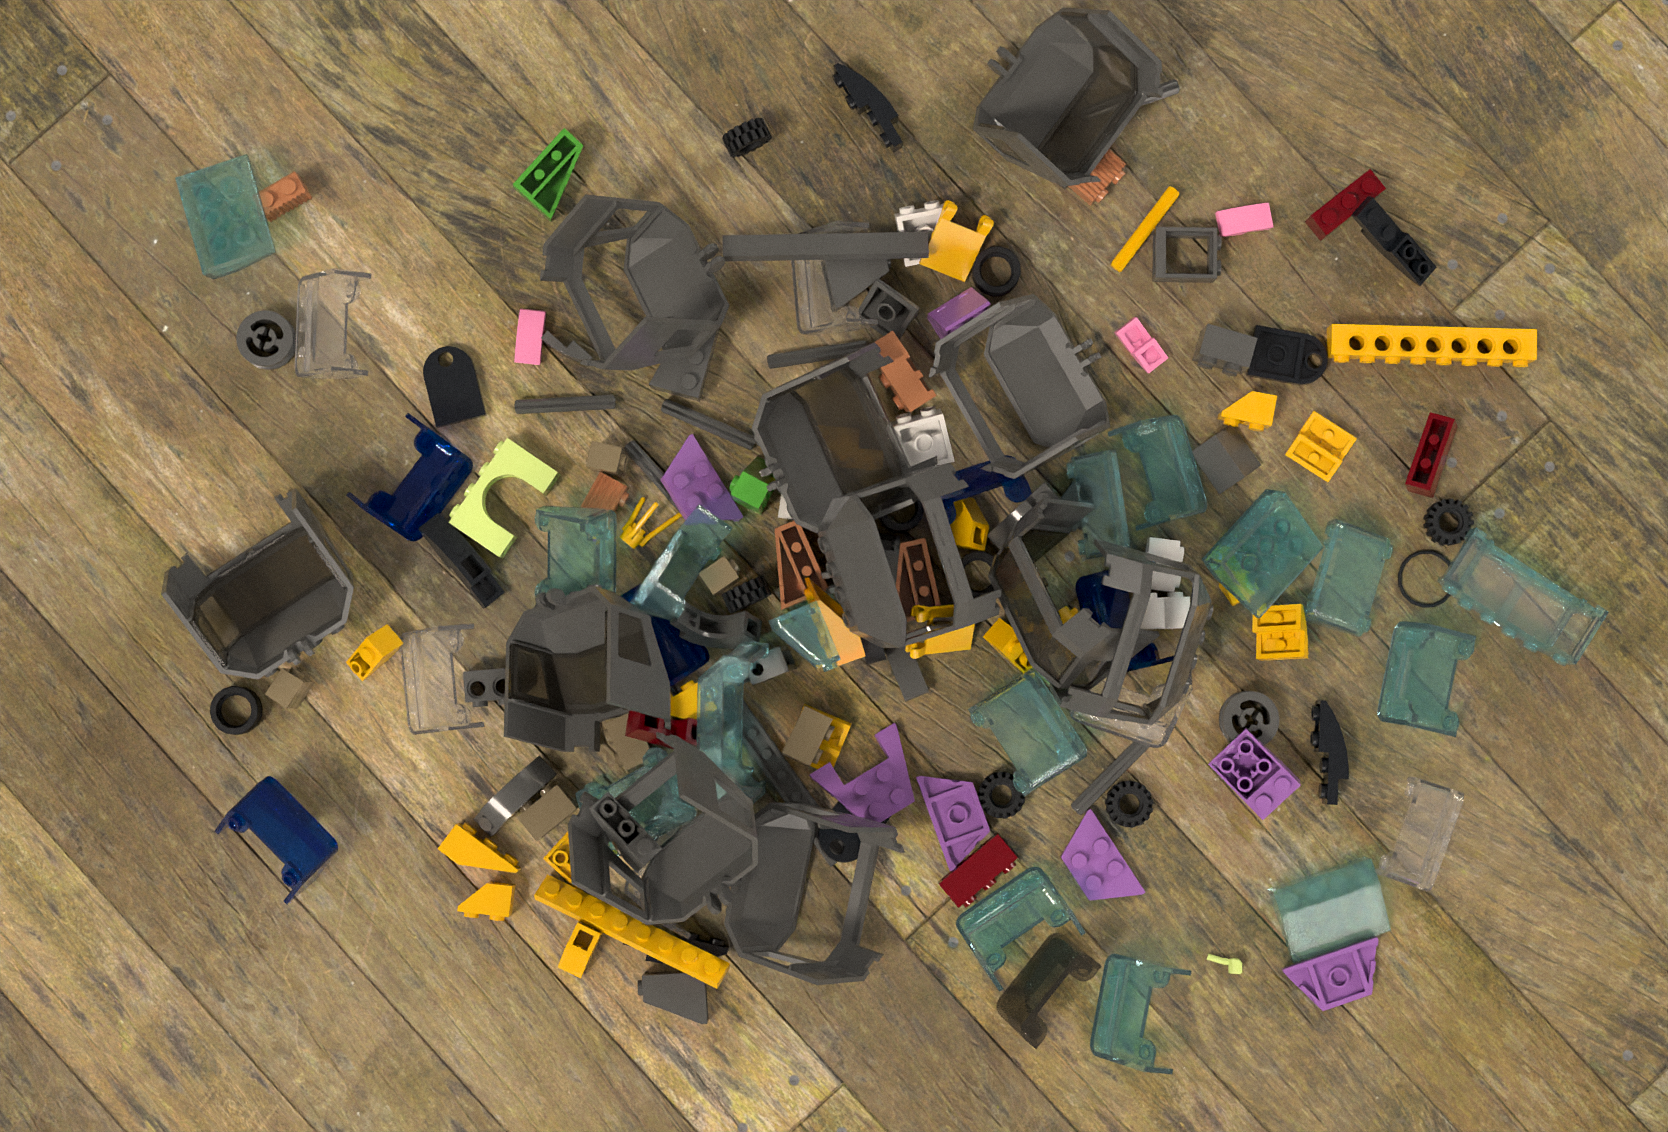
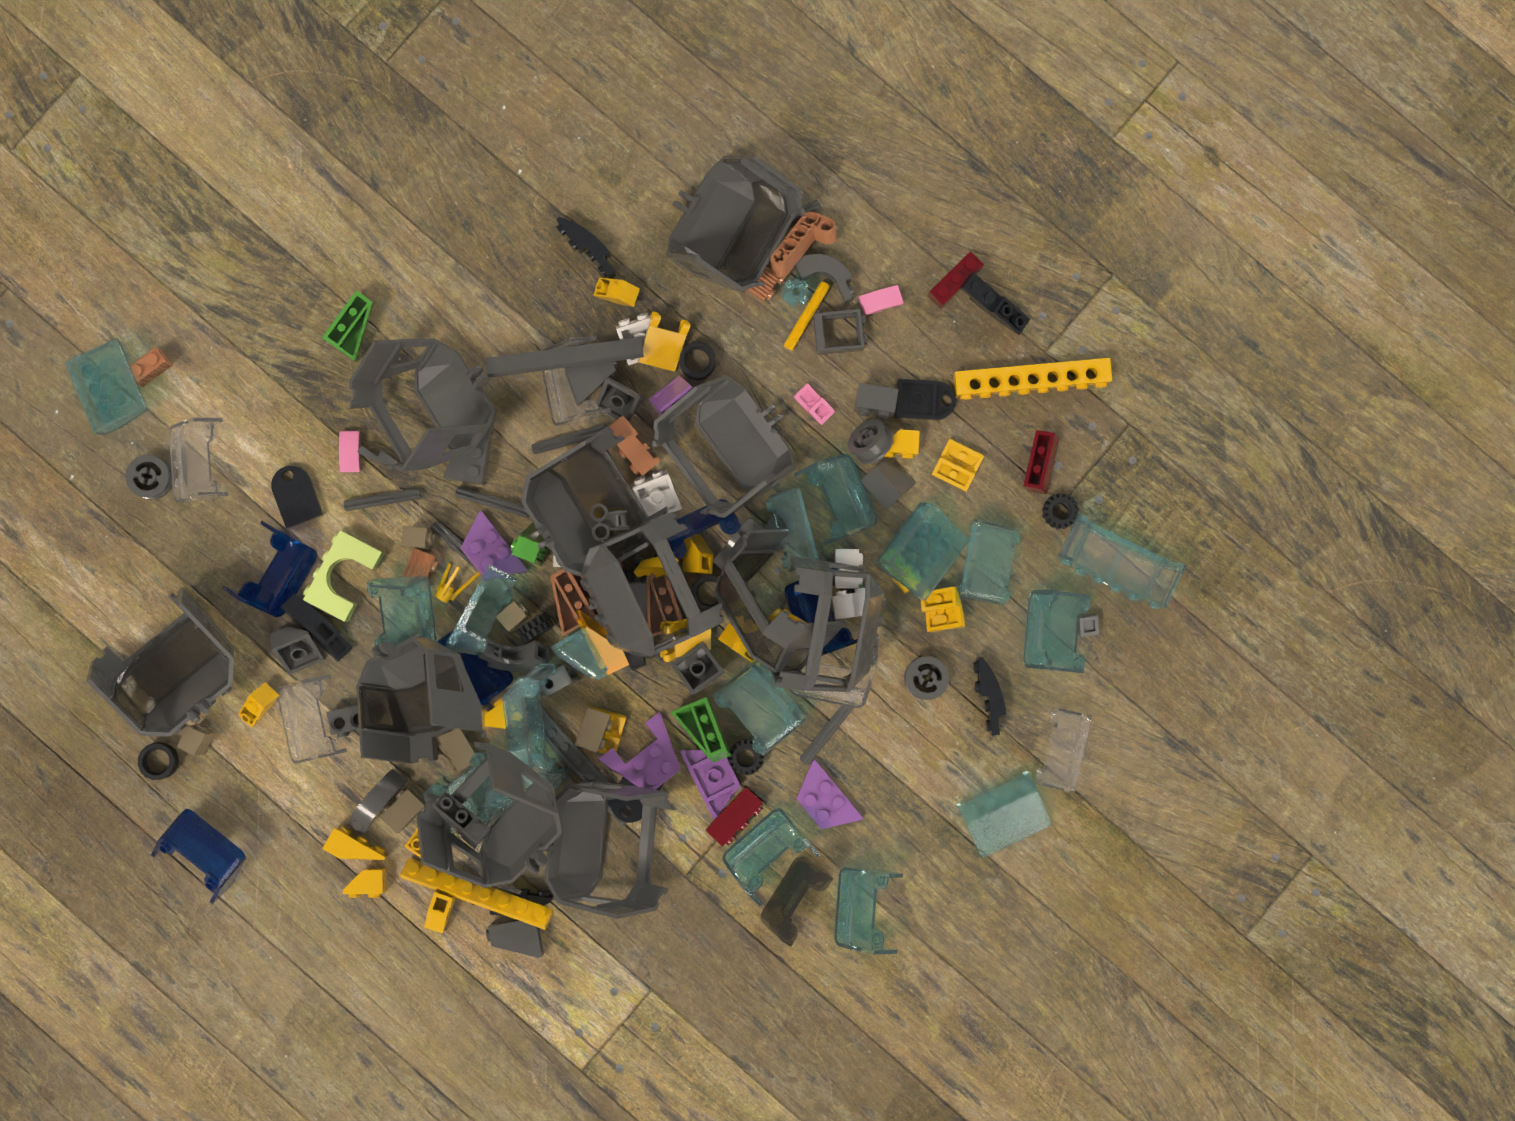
camera: 10 degrees left, 0 degrees up
(431, 585) = (295, 649): none -> dark grey slope
(644, 728) = (495, 737): dark red arch -> none
(746, 137) = (496, 281): black tyre -> none
(860, 466) = (609, 521): none -> dark grey piece
(901, 168) = (616, 291): none -> yellow slope
(906, 673) = (664, 673): dark grey slope -> none
(915, 530) = (649, 567): none -> yellow slope
(952, 672) = (697, 668): none -> dark grey slope
(952, 751) = (704, 728): none -> bright green wedge
(1127, 203) = (792, 299): none -> clear light blue brick
(1143, 811) = (839, 764): black tyre -> none
(1148, 128) = (799, 239): none -> nougat beam
(1180, 168) = (826, 266): none -> dark grey arch
(1211, 402) = (870, 441): none -> dark grey wheel
(1234, 964) = (937, 865): yellowish green hand -> none
(1255, 773) = (935, 718): medium lavender slope -> none
(1336, 975) = (1015, 863): medium lavender wing -> none
(1400, 578) = (1029, 559): black piece -> none
(1468, 675) = (1088, 625): none -> dark grey plate

